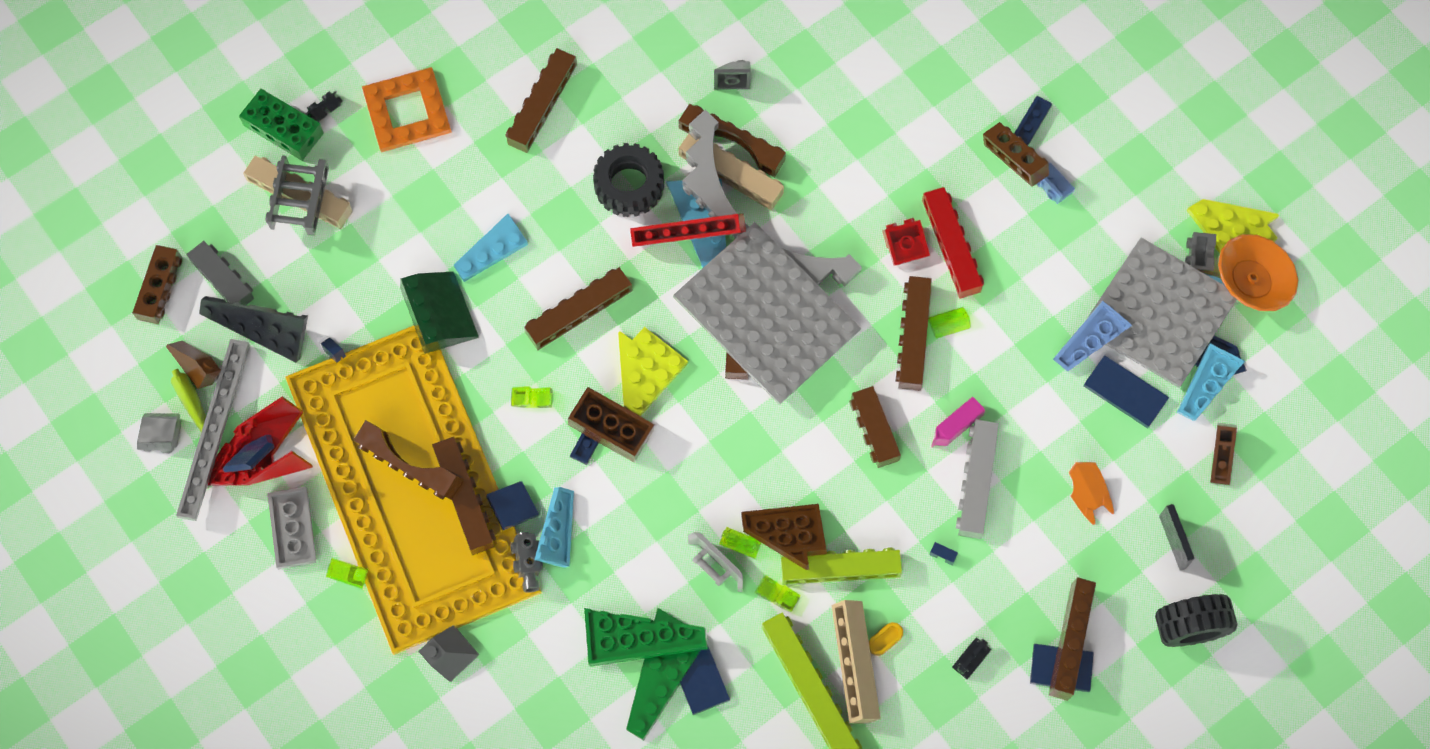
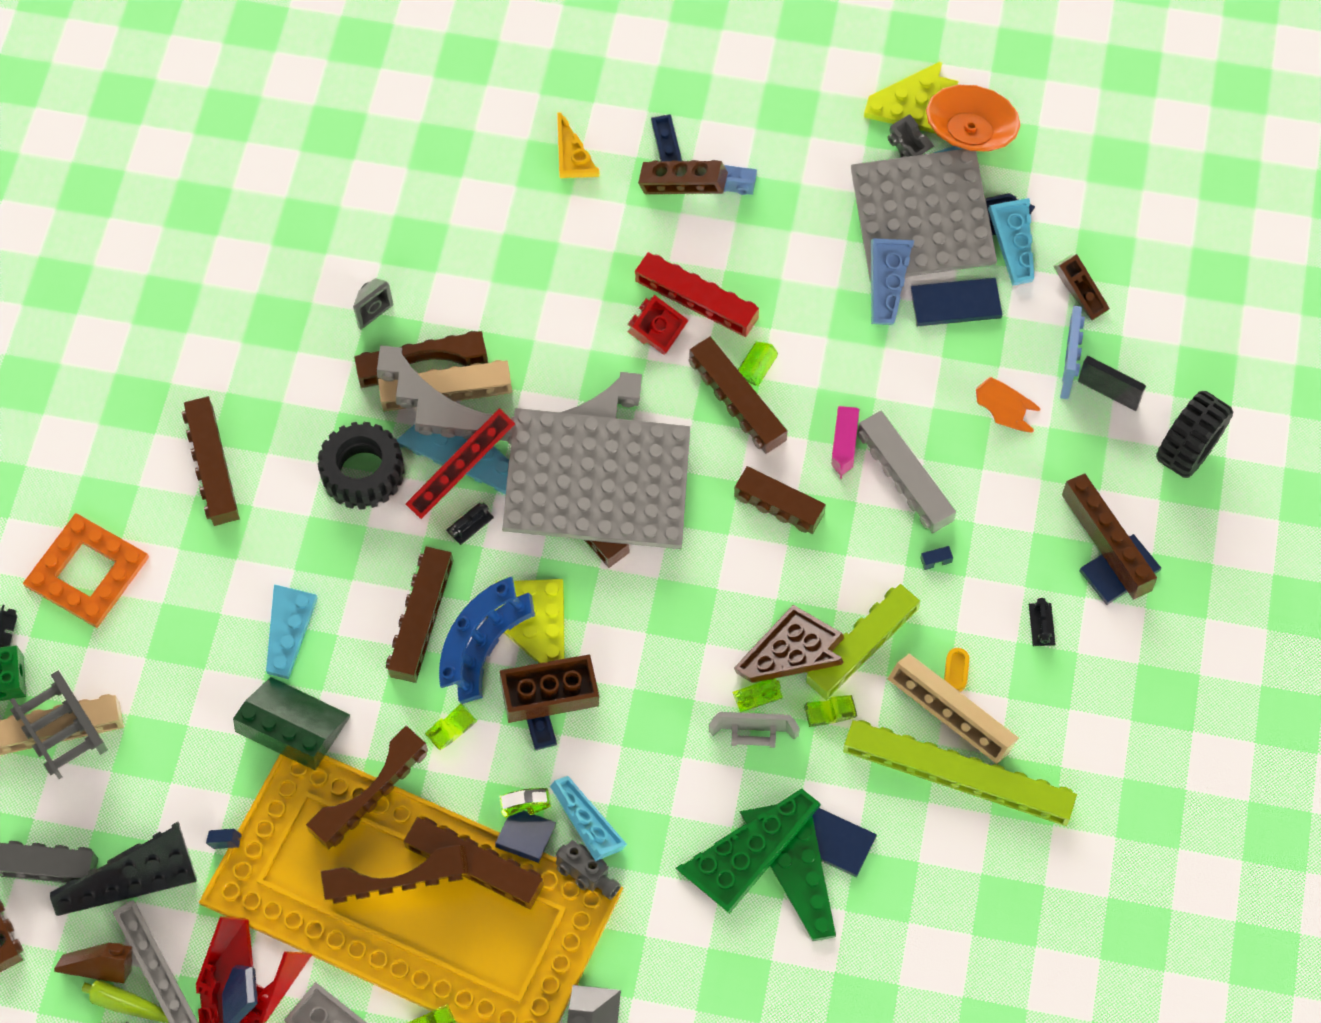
camera: 40 degrees left, 5 degrees down
(484, 388) = (334, 821): none -> reddish brown arch
(534, 485) = (531, 799): none -> slope
(628, 355) = (465, 663): none -> blue fence
(663, 275) = (470, 523): none -> black hinge
(958, 81) = (573, 158): none -> yellow wing
(1172, 491) = (1073, 352): none -> medium blue wing

